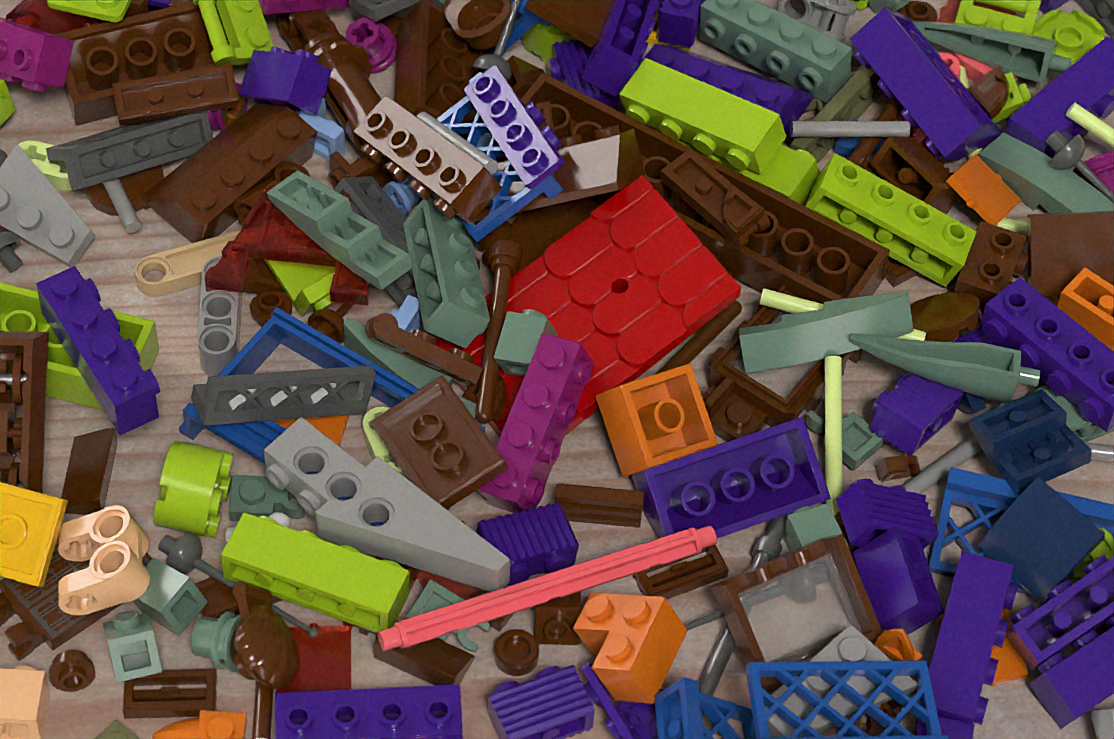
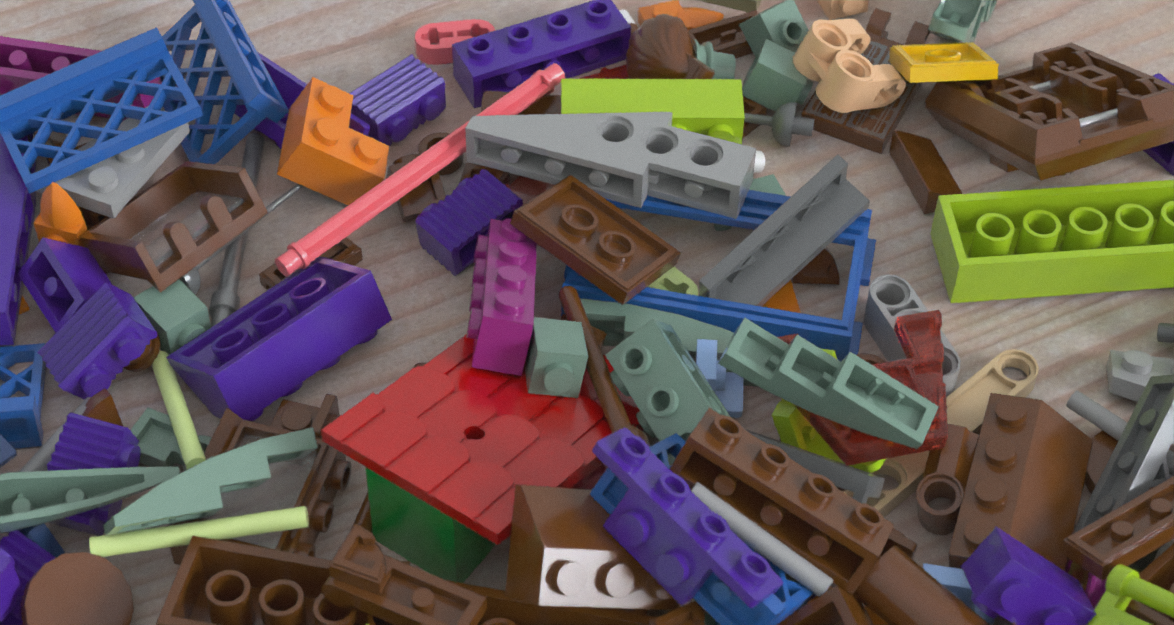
camera: 160 degrees right, 5 degrees down
(71, 671) = (818, 10): reddish brown plate -> none
(98, 349) = (984, 188): dark purple brick -> none
(193, 489) = (808, 144): lime brick -> none
(422, 349) = (672, 308): reddish brown plate -> none
(600, 505) = (420, 280): reddish brown tile -> none
(656, 419) = (378, 339): orange brick -> none

